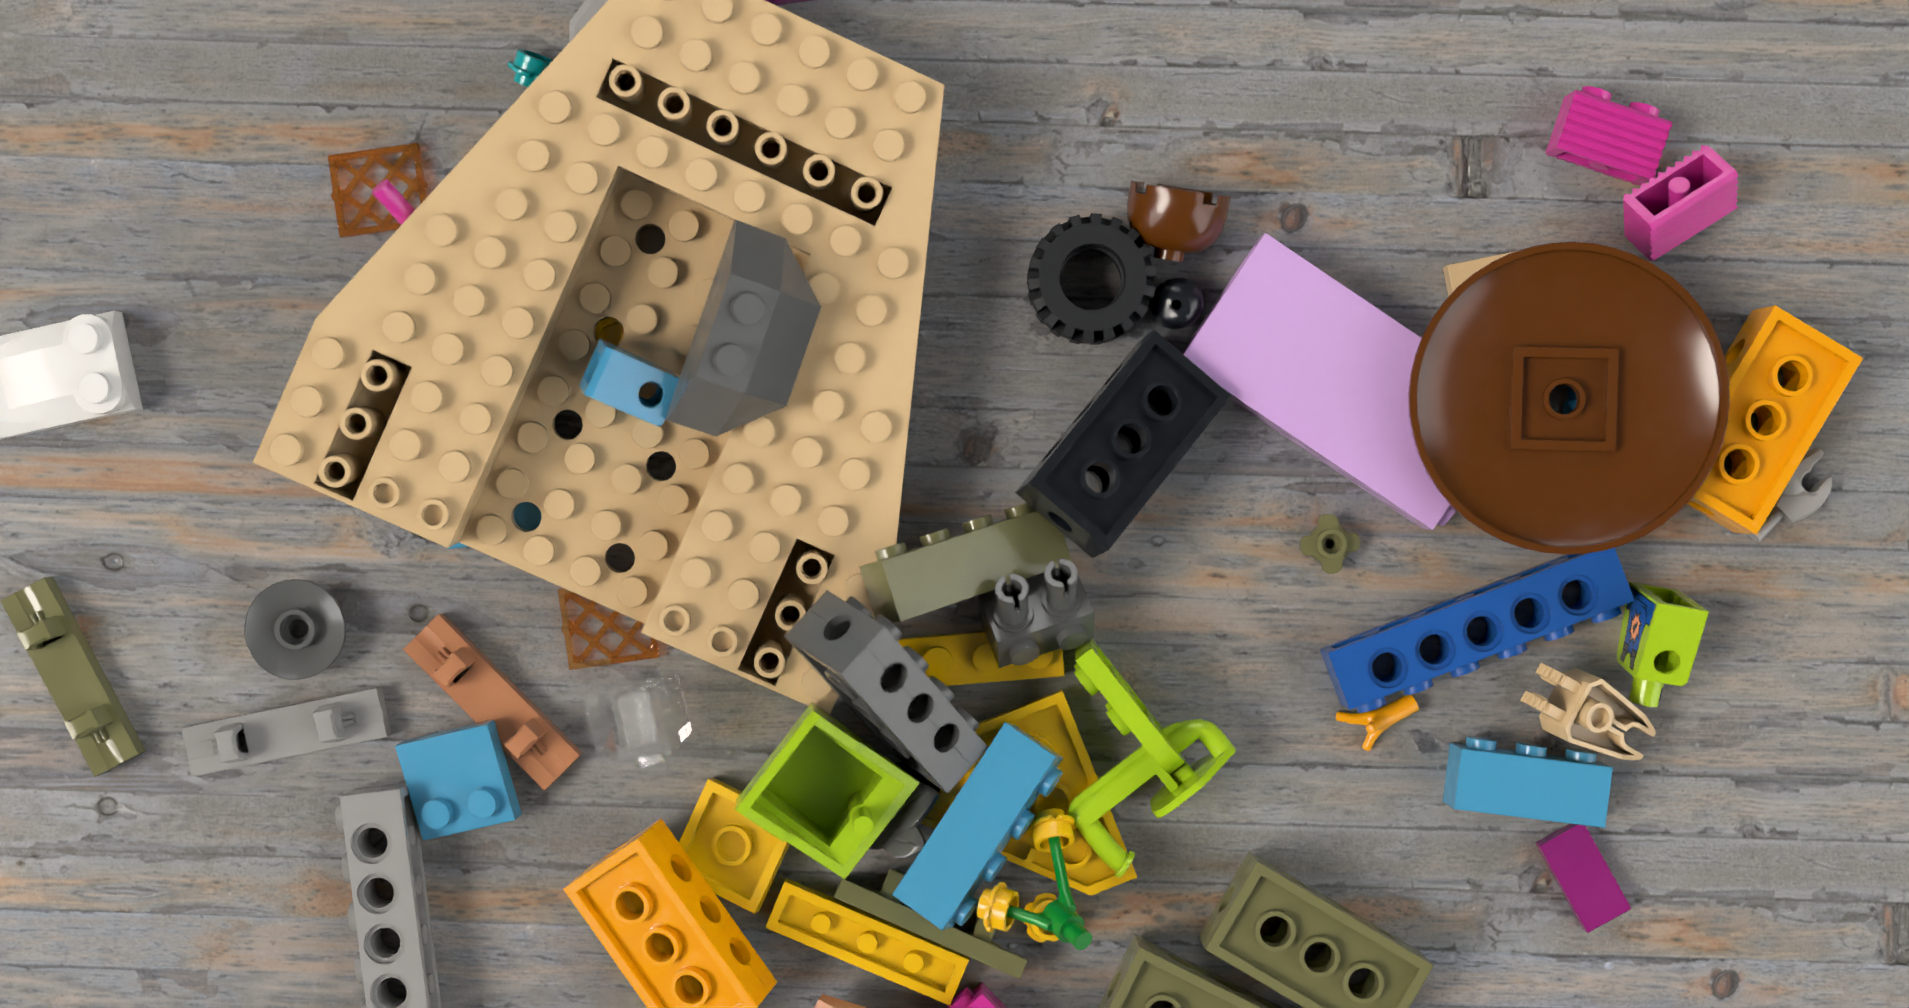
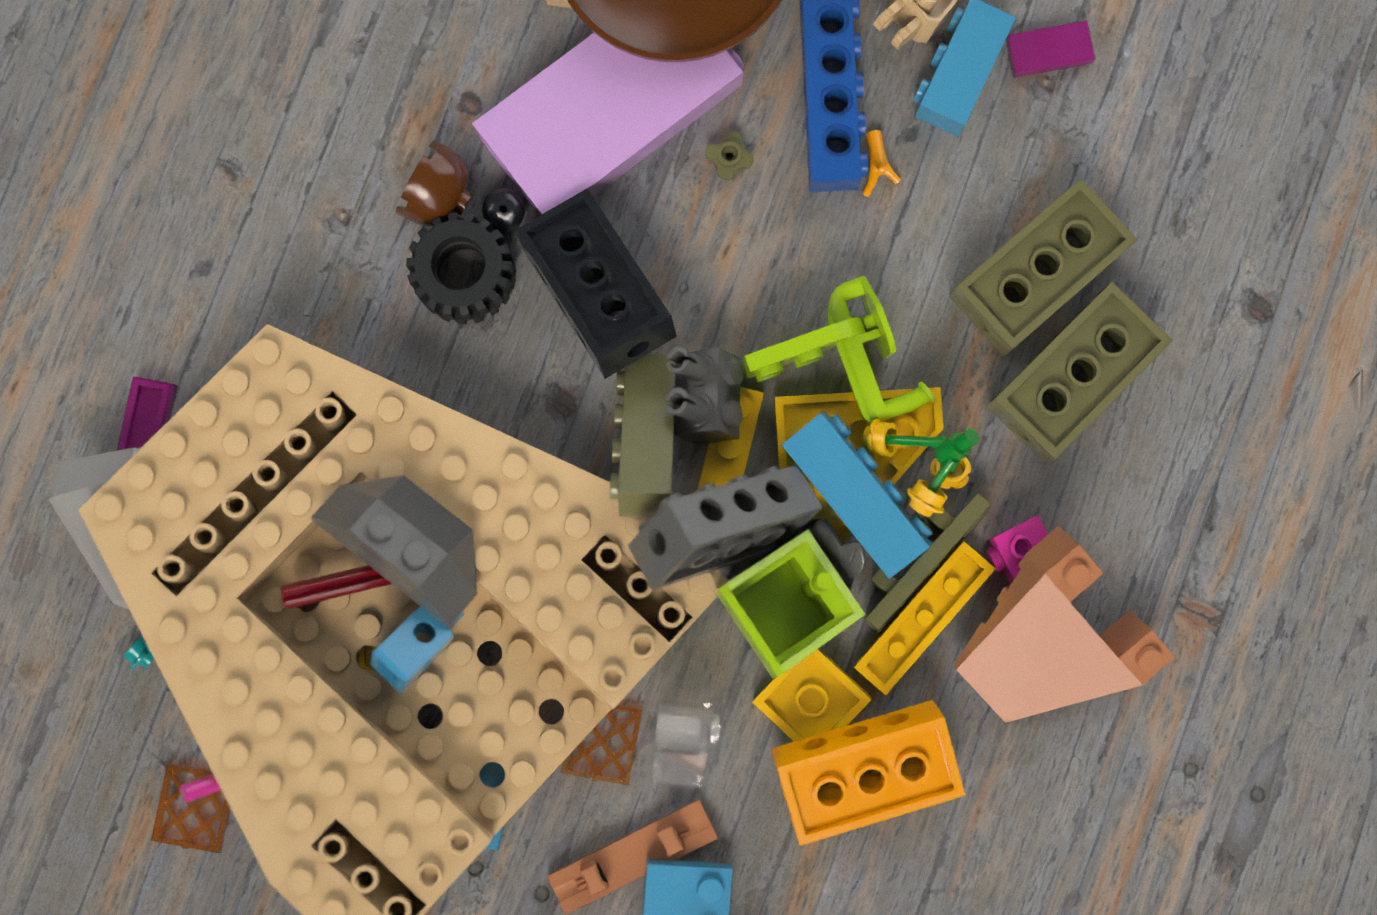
camera: 65 degrees left, 5 degrees down
(669, 265) = (331, 586): none -> dark red axle

